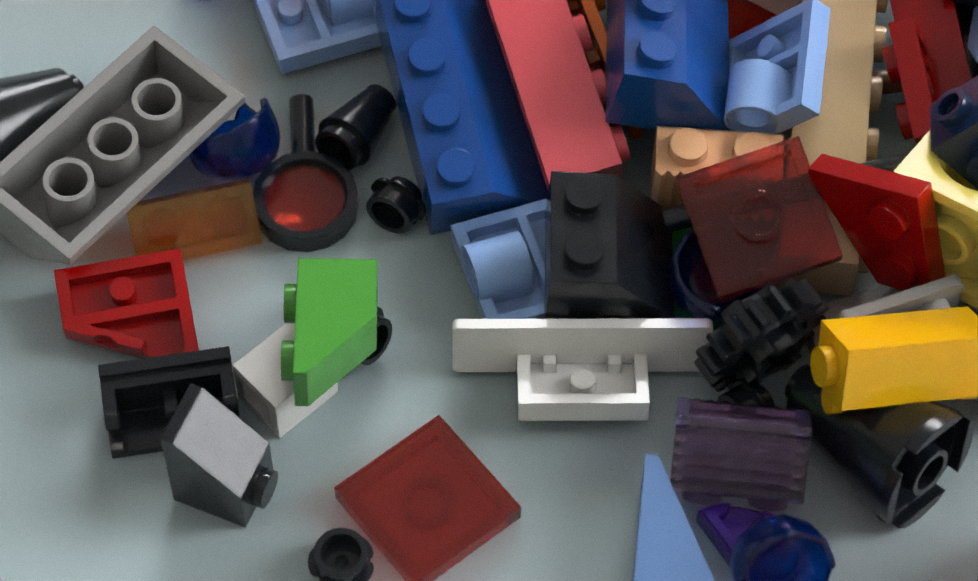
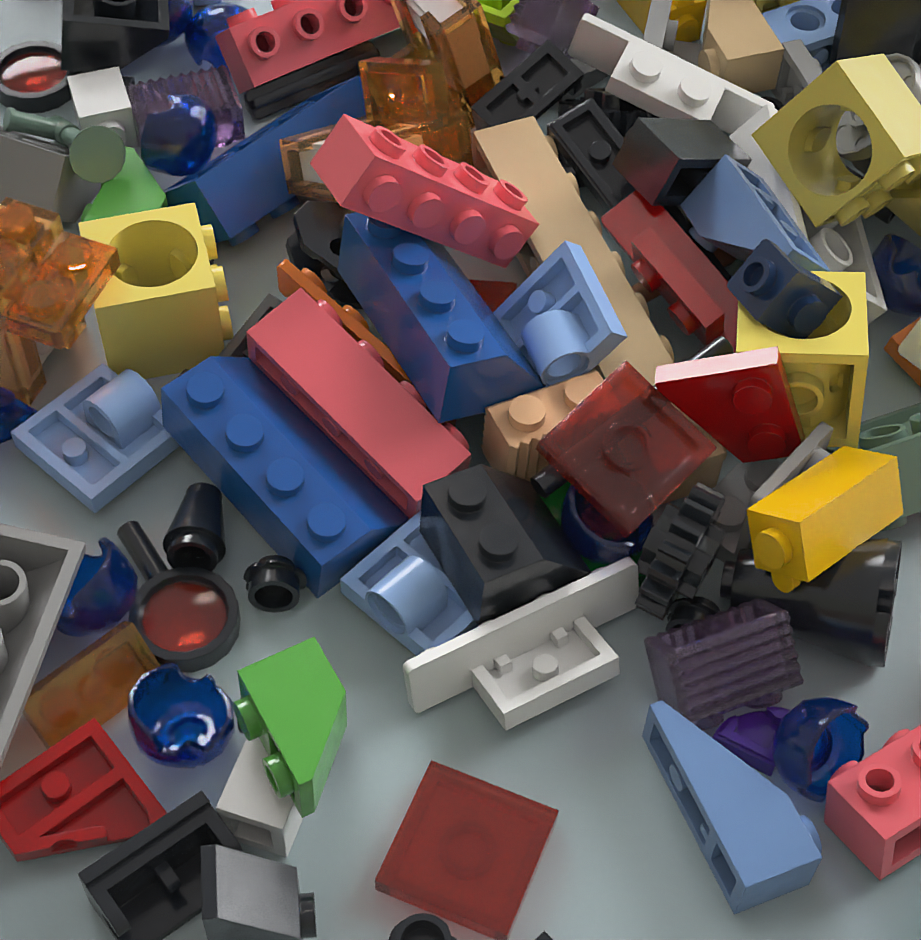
camera: 30 degrees left, 5 degrees down
(247, 279) = (179, 717): none -> clear blue hair

